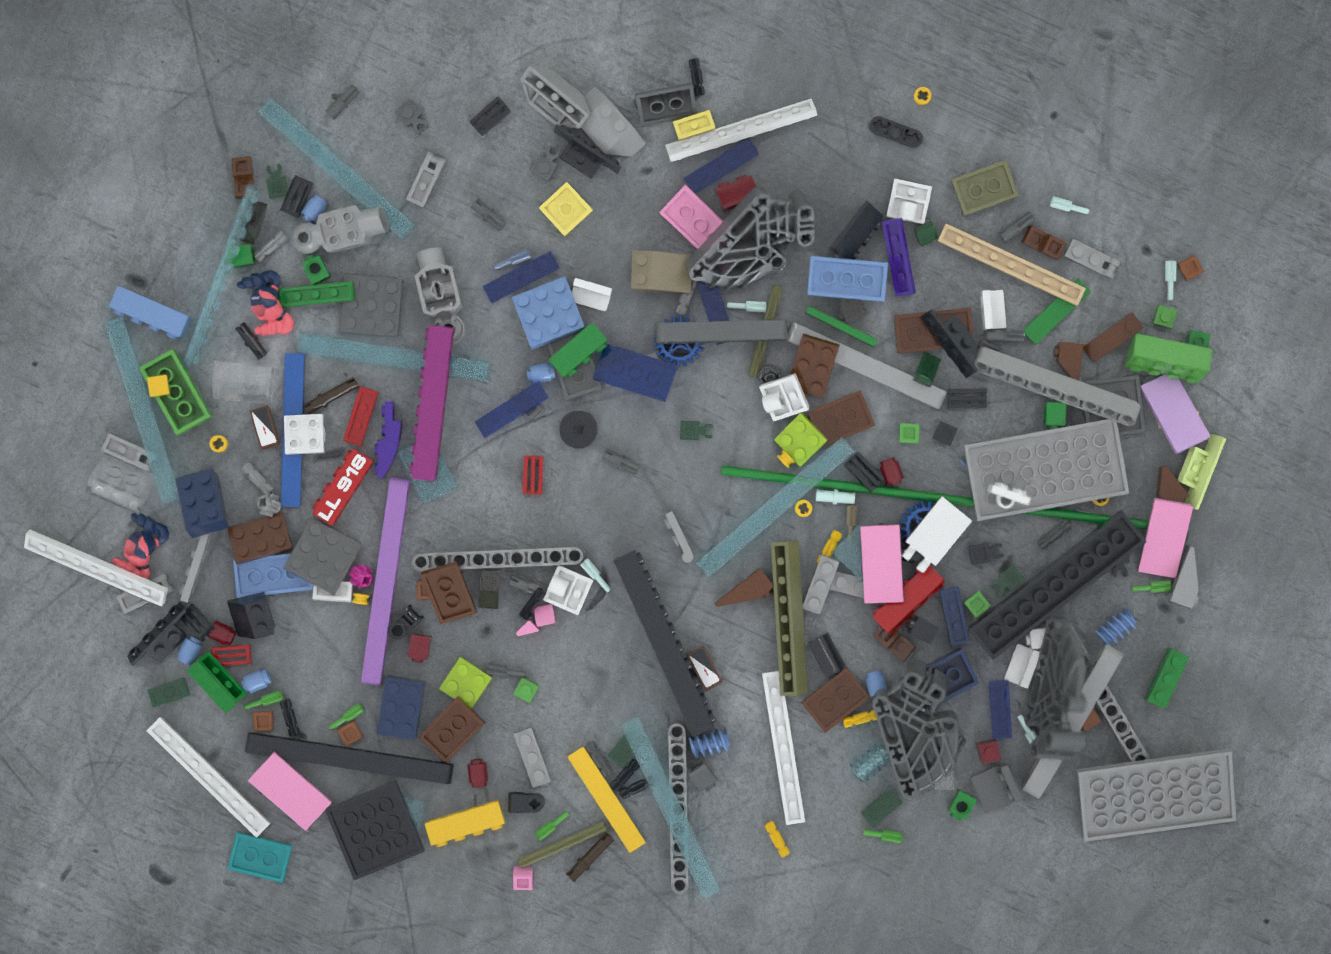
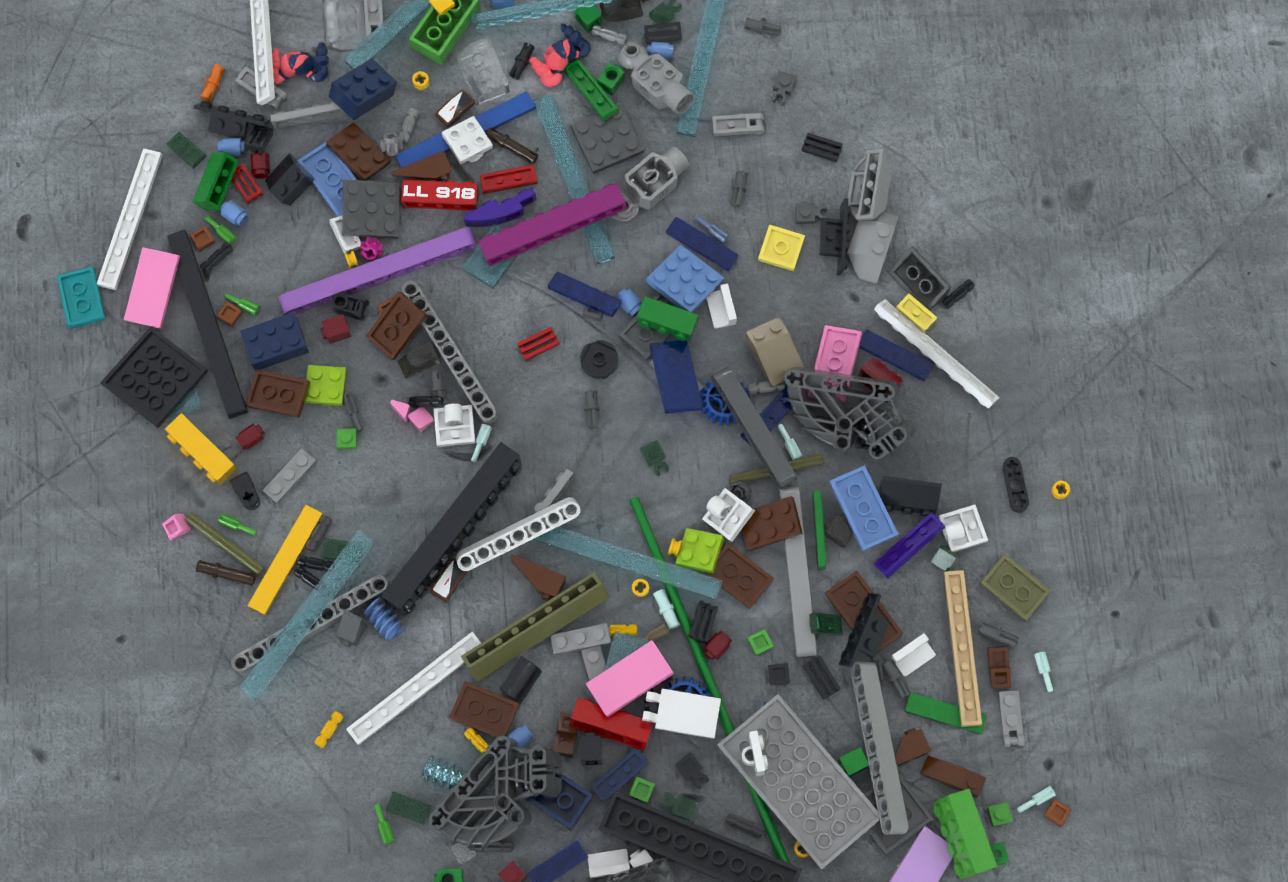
camera: 60 degrees right, 15 degrees down
(114, 635) = (212, 83): none -> orange pin
(312, 482) = (428, 168): none -> reddish brown slope
(696, 580) = (512, 542): none -> white beam

